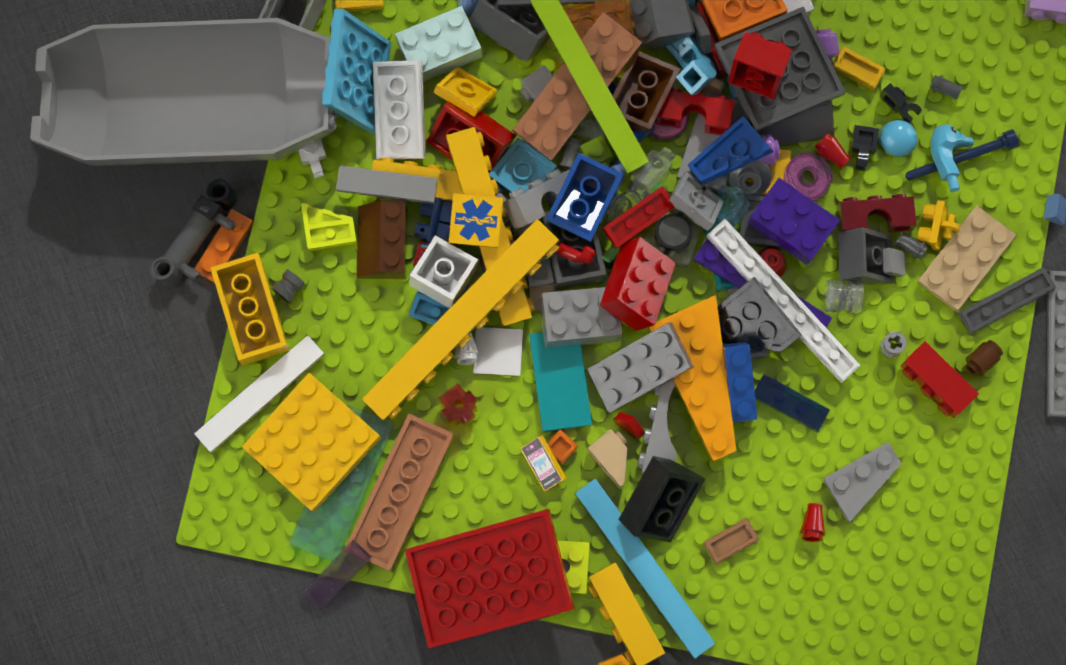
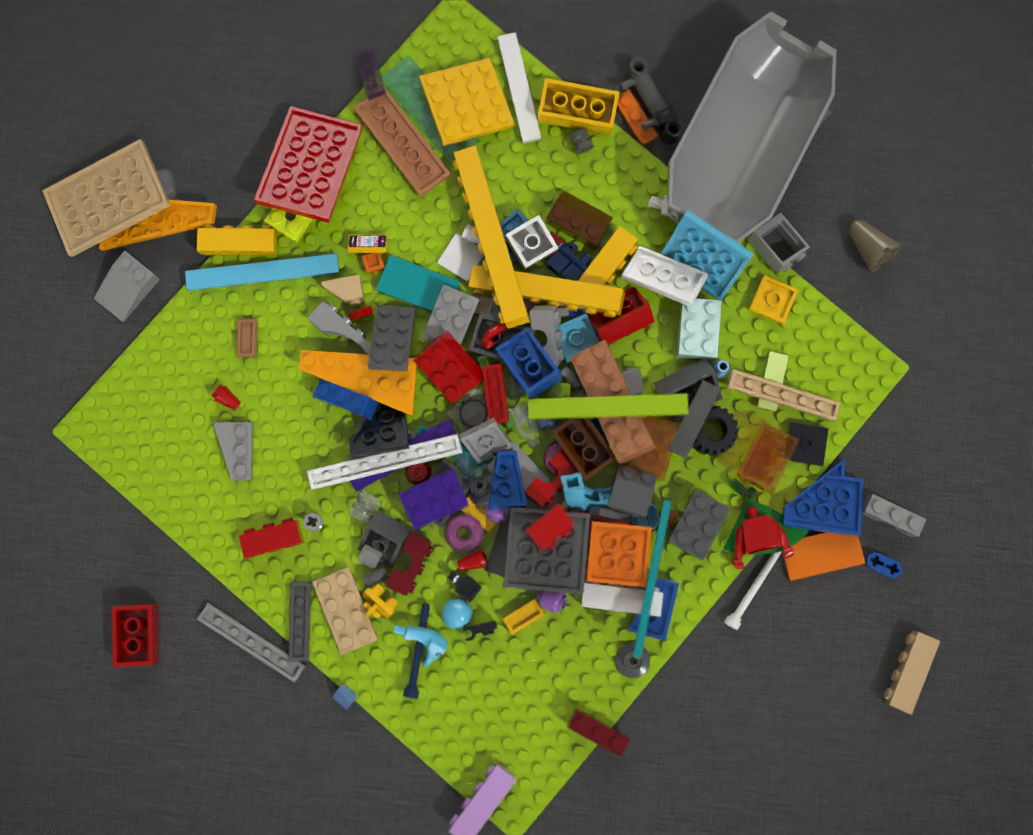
camera: 115 degrees right, 5 degrees up
(327, 229) = (608, 187): neon yellow wing -> none
(386, 184) = (614, 237): light grey tile -> none
(454, 397) = (436, 207): clear red brick -> none
(465, 91) = (654, 328): yellow tile -> none
(475, 220) = (552, 278): yellow tile -> none
(661, 500) = (296, 302): black slope -> none
(790, 403) = (315, 430): tile -> none
(945, 87) = (474, 670): dark grey pin -> none
(983, 358) = (268, 579): reddish brown brick -> none

